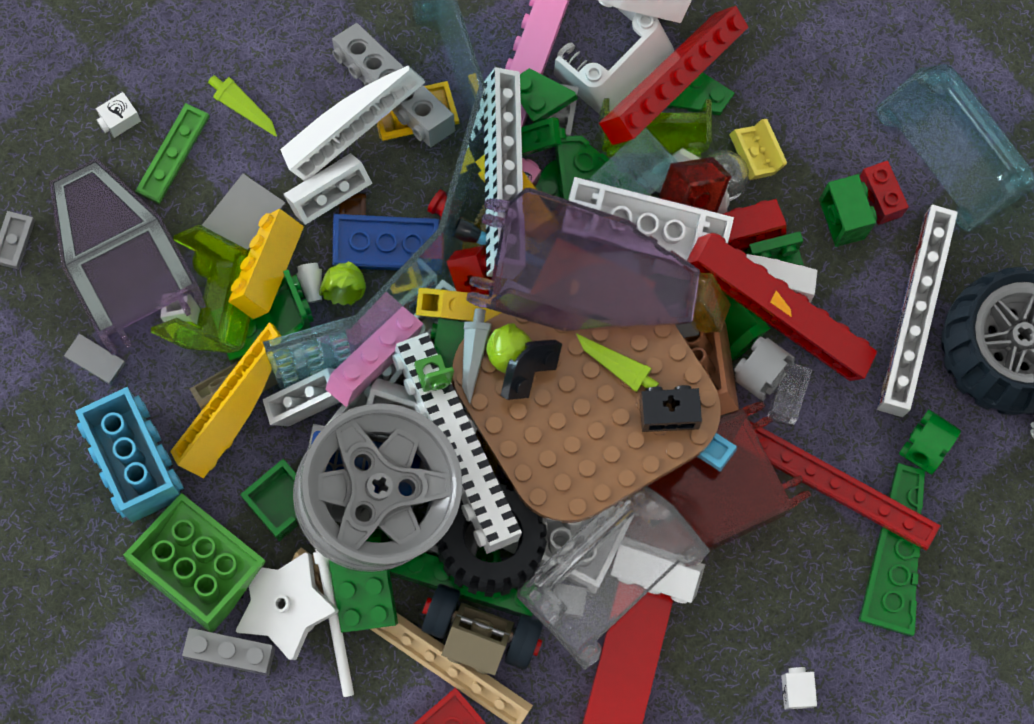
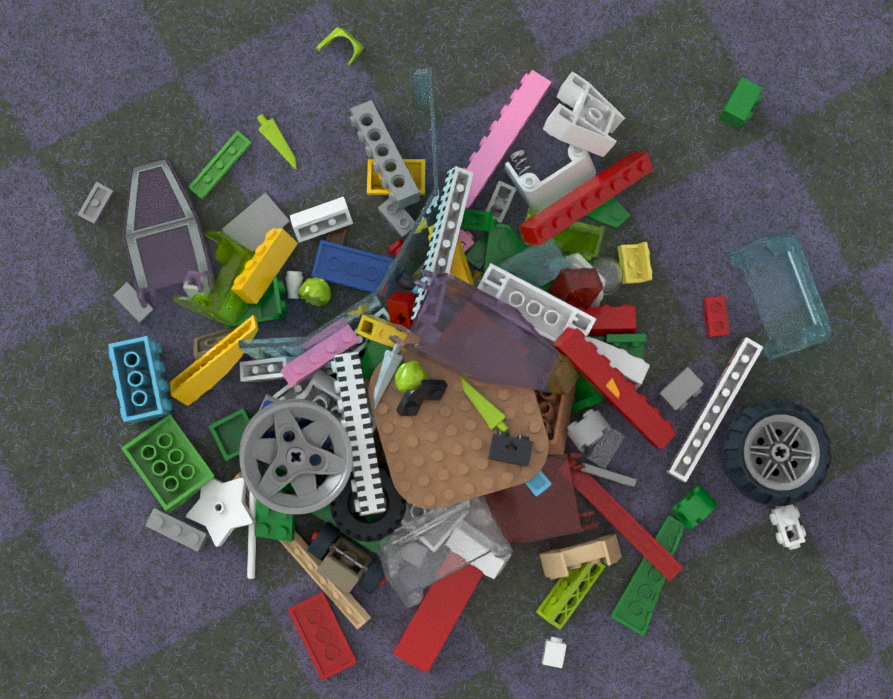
camera: 25 degrees right, 10 degrees up
(117, 115) = (187, 128): white brick -> none
(347, 122) = (343, 177): white slope -> none
(429, 164) = (398, 219): none -> light grey brick
(434, 380) = (357, 390): bright green bracket -> none
(543, 96) = (487, 189): green wing -> none
(781, 550) = (602, 549): none -> tan wedge
(792, 594) = (565, 589): none -> lime fence
(802, 429) = (608, 475): none -> light grey tile
(847, 210) = (685, 325): green brick -> none
(865, 296) = (681, 389): none -> light grey brick

